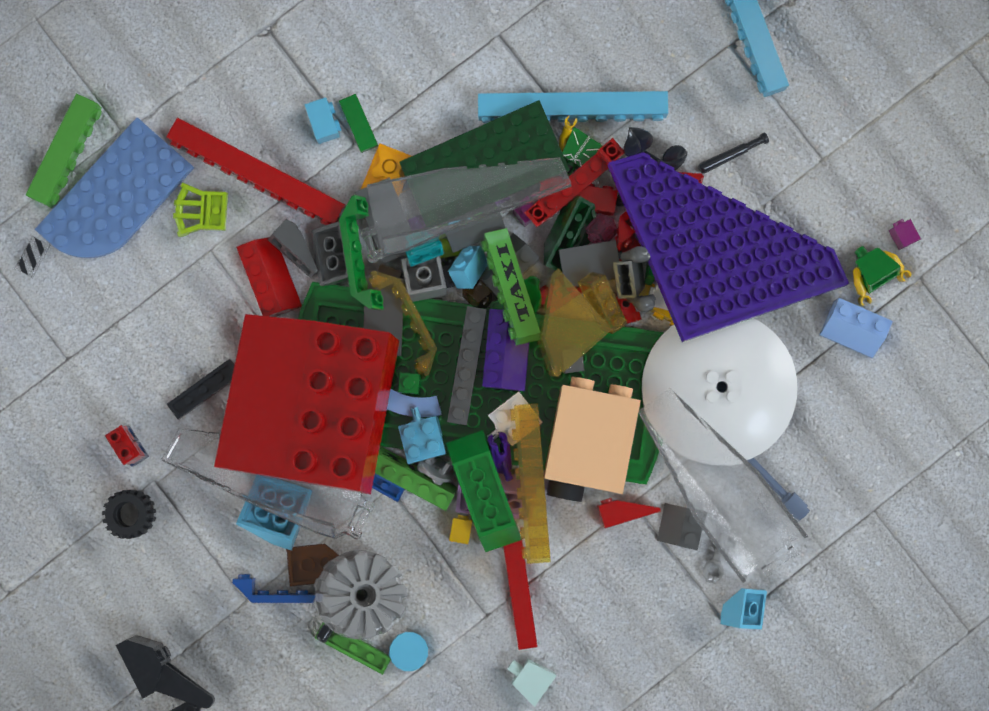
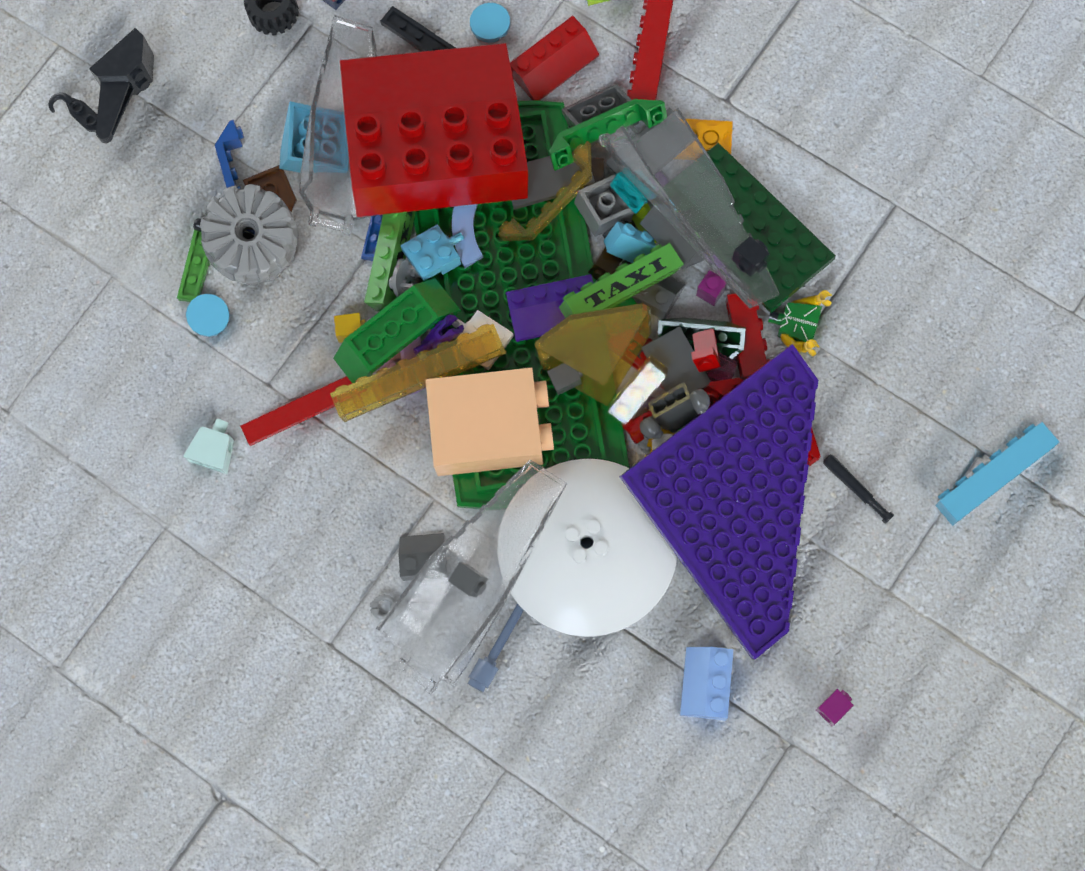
camera: 80 degrees right, 10 degrees down
(211, 322) = (490, 22): none -> medium azure tile
(291, 243) = (596, 67): dark grey slope -> none
(322, 120) = (735, 59): medium azure brick -> none
(358, 123) = (746, 95): green tile -> none
(409, 383) = (486, 223): green brick -> none
(466, 366) = (521, 273): dark grey brick -> none
(524, 169) = (751, 256): none -> black brick
(565, 491) = (420, 418): black tyre -> none
(579, 105) = (849, 310): medium azure brick -> none
(580, 180) = (756, 323): red slope -> none
(588, 235) = (706, 351): none -> bracket
(619, 512) = (419, 486): red slope -> none
(640, 140) = (827, 369): black plant -> none
(721, 494) = (468, 580): none -> dark grey brick
(745, 609) = (351, 653): medium azure slope -> none
(875, 270) = (780, 684): green torso -> none

